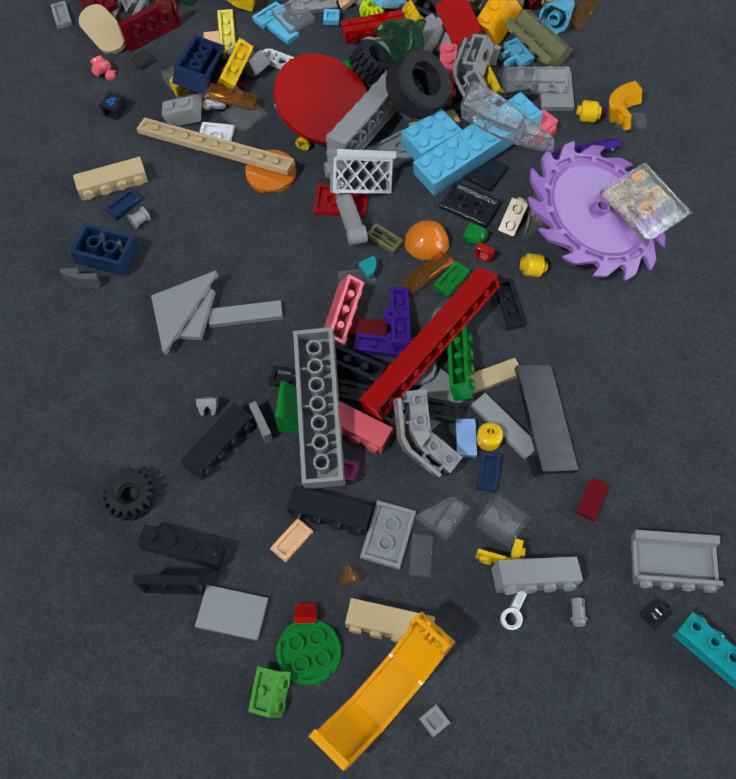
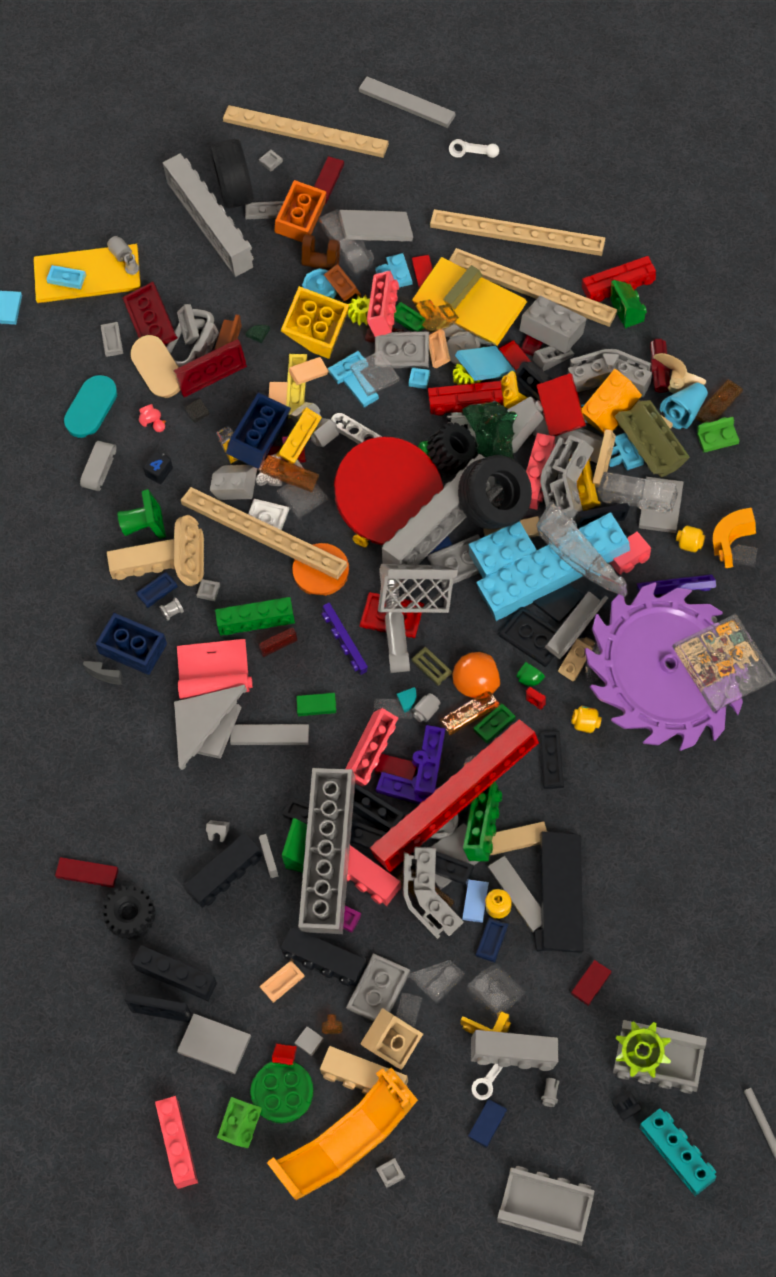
camera: 15 degrees right, 0 degrees up
(47, 66) = (90, 406): none -> teal tile
(58, 110) = (98, 465): none -> light grey beam
(82, 461) = (86, 872): none -> dark red tile
(103, 144) = (143, 517): none -> green plant
(148, 166) = (188, 550): none -> tan tile
(171, 199) = (208, 590): none -> light grey tile
(182, 262) = (212, 667): none -> coral door
(206, 724) = (176, 1142): none -> coral brick
(217, 214) = (255, 616): none -> green brick
(235, 20) = (308, 371): none -> light nougat tile
(241, 233) = (278, 642): none -> clear red tile
(285, 282) = (316, 704): none -> green tile
(302, 223) = (340, 633): none -> dark purple hinge
(328, 596) = (309, 1041): none -> light grey tile
(386, 272) = (426, 708): none -> light grey brick
(411, 581) = (391, 1039): none -> tan slope
(502, 55) = (604, 456): none -> tan tile
(506, 189) = (575, 624): none -> light grey panel
(522, 653) = (487, 1123): none -> dark blue tile
(589, 33) = (717, 434): none -> bright green bracket
(601, 730) = (546, 1205): none -> light grey panel
(677, 557) = (638, 1060): none -> lime brick

